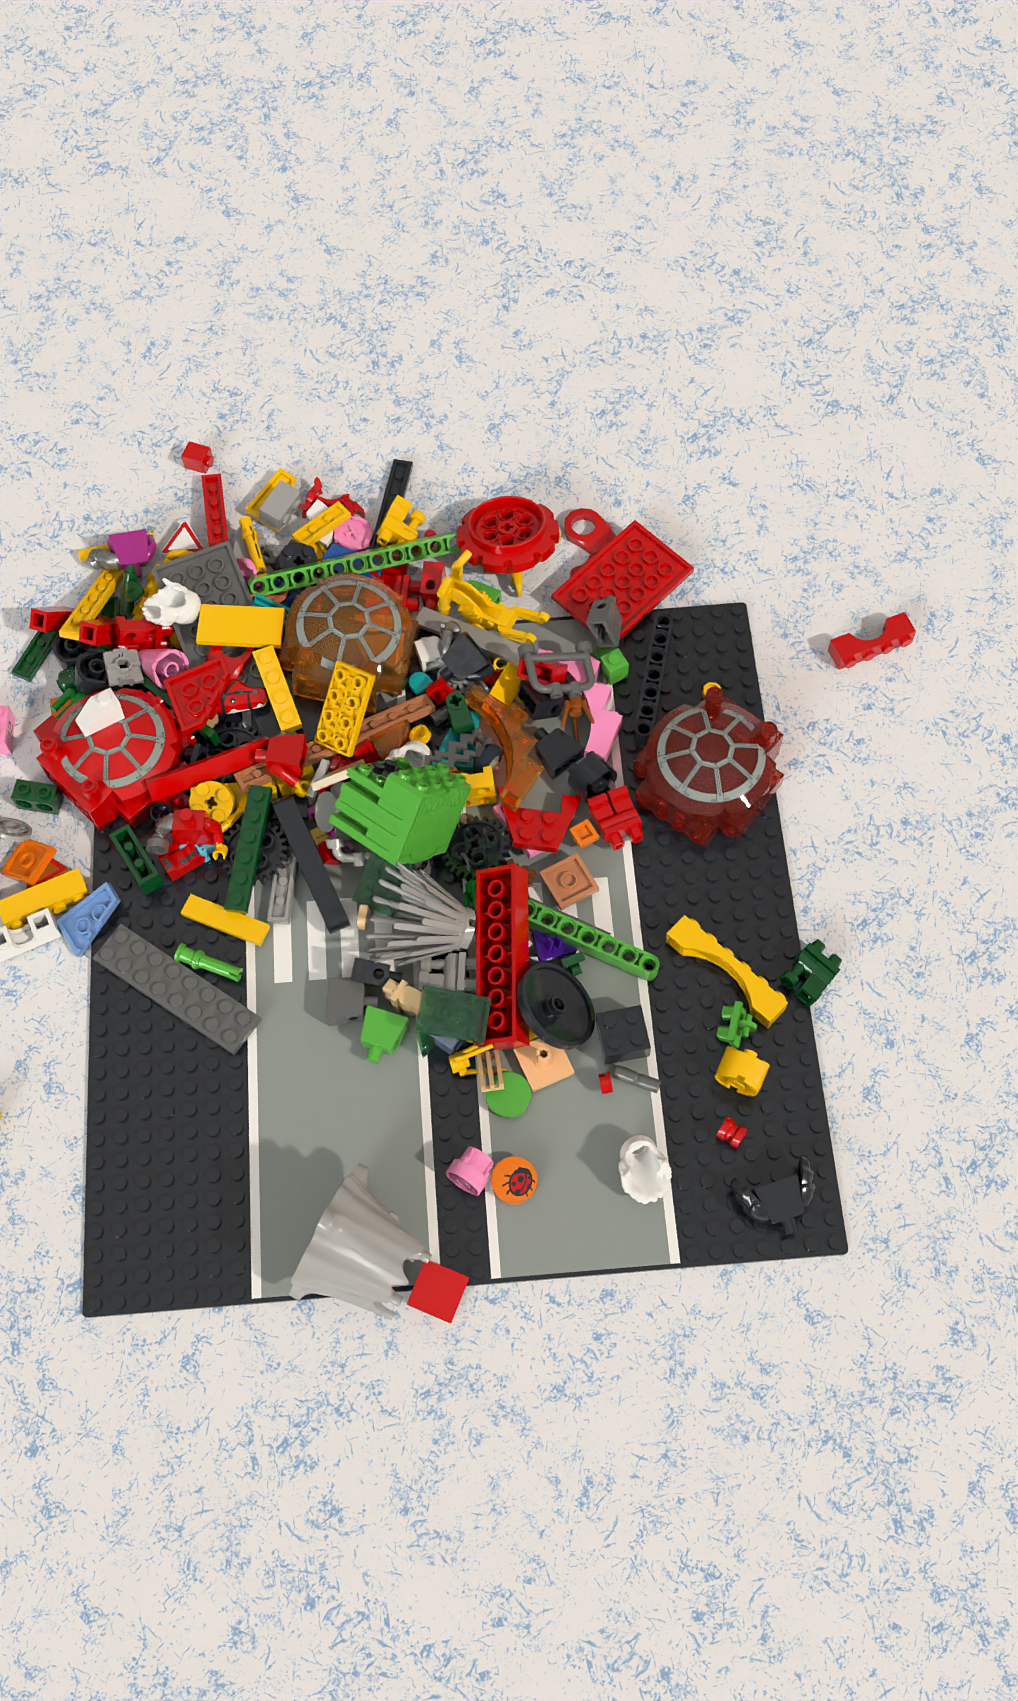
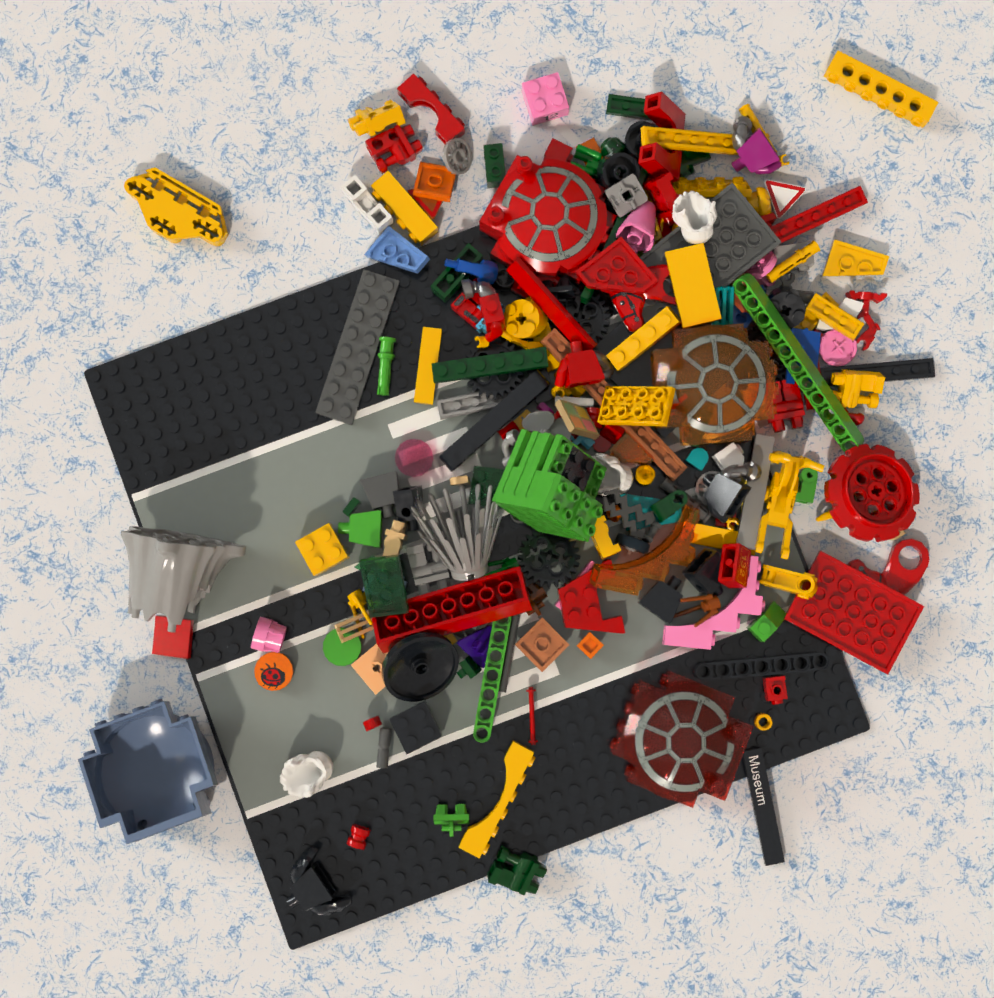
camera: 70 degrees right, 20 degrees up
(99, 712) = (564, 196): white slope -> none
(114, 436) = (890, 87): none -> yellow brick
(129, 590) = (712, 169): dark green plant -> none
(142, 830) = (484, 271): none -> blue animal
(197, 457) = (879, 175): red brick -> none
(280, 505) = (845, 271): light grey brick -> none
(321, 961) = (414, 458): none -> clear pink tile
(353, 1040) = (351, 507): none -> dark green tile
(390, 1084) = (322, 549): none -> yellow brick
(430, 582) = (808, 439): red torso -> none
(439, 690) = (691, 479): red tile -> none
(556, 689) = (713, 585): dark grey bar -> none
(572, 628) = (788, 581): none -> yellow piece
(589, 1348) = (148, 771): none -> sand blue windscreen
(591, 776) = (642, 638): black brick -> none
(605, 622) = (800, 610): dark grey torso -> none
(615, 817) = (609, 675): red hips -> none
(644, 913) = (532, 718): none -> red axle
(680, 671) = (770, 683): none -> red brick
(742, 1071) = (409, 834): yellow brick -> none
(805, 715) = (763, 806): none -> black tile
(849, 650) = (875, 874): red arch -> none

